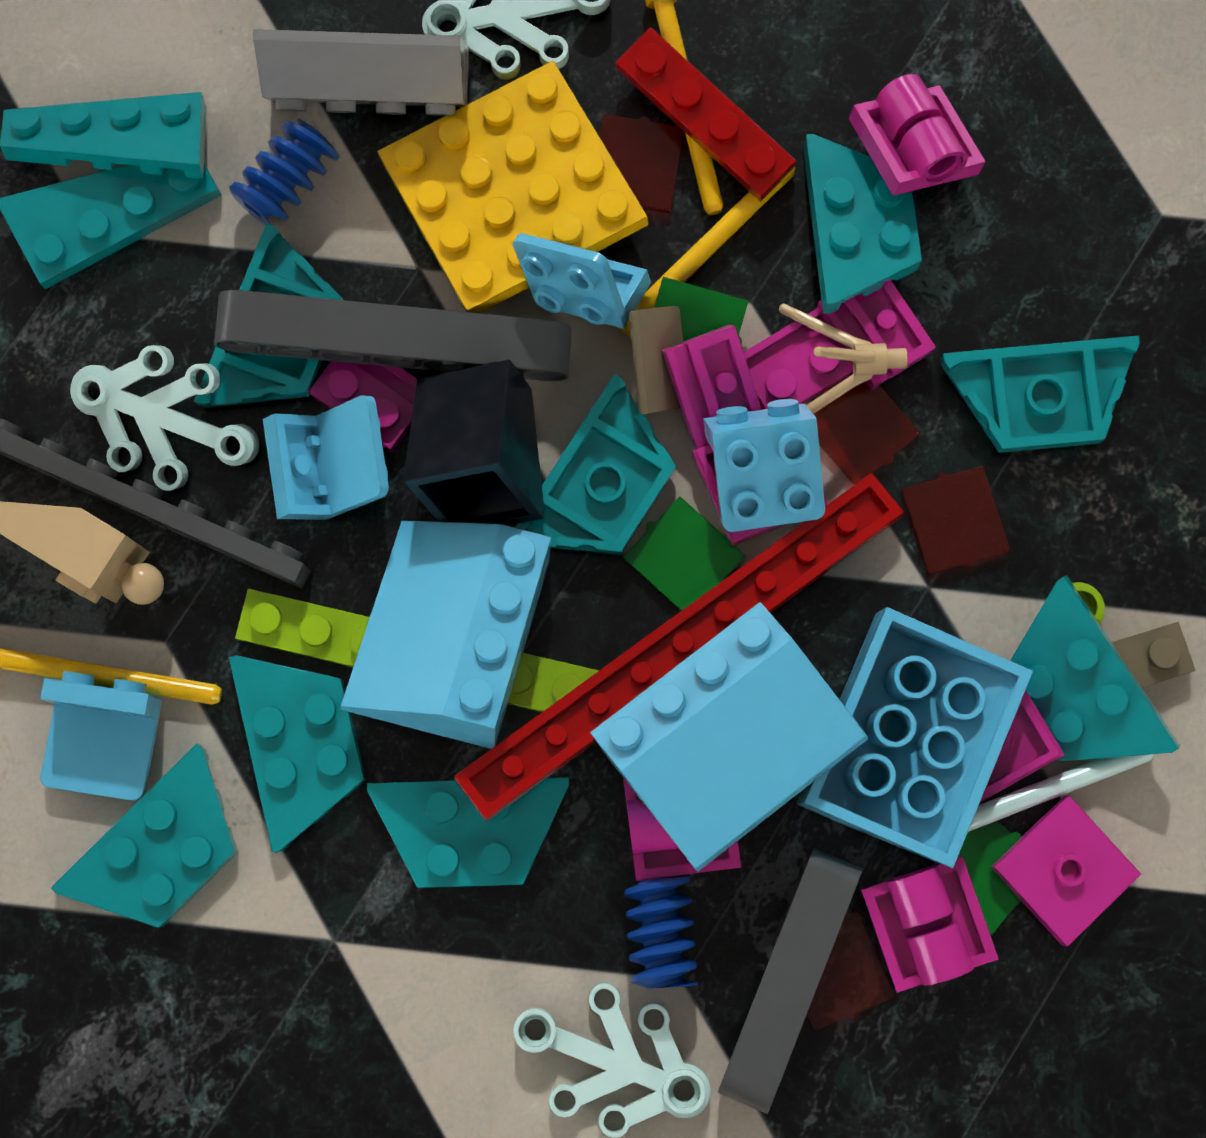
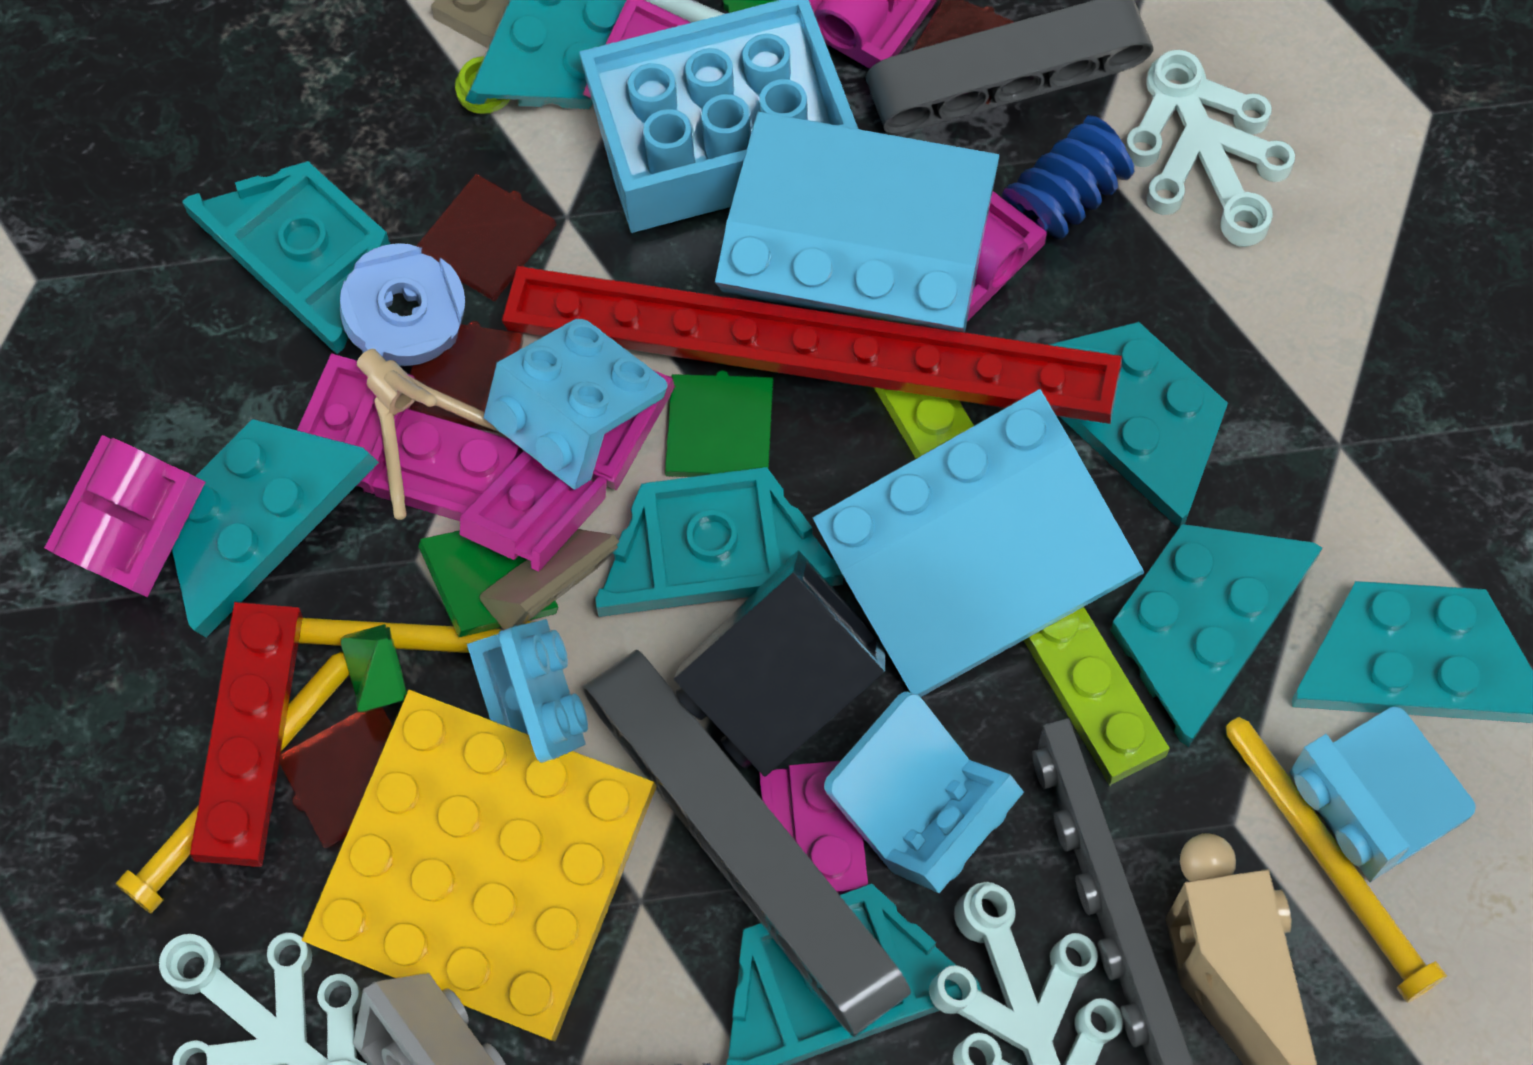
camera: 130 degrees left, 15 degrees down
(682, 218) = (374, 668): none -> green slope
(917, 387) = (419, 277): none -> light blue plate

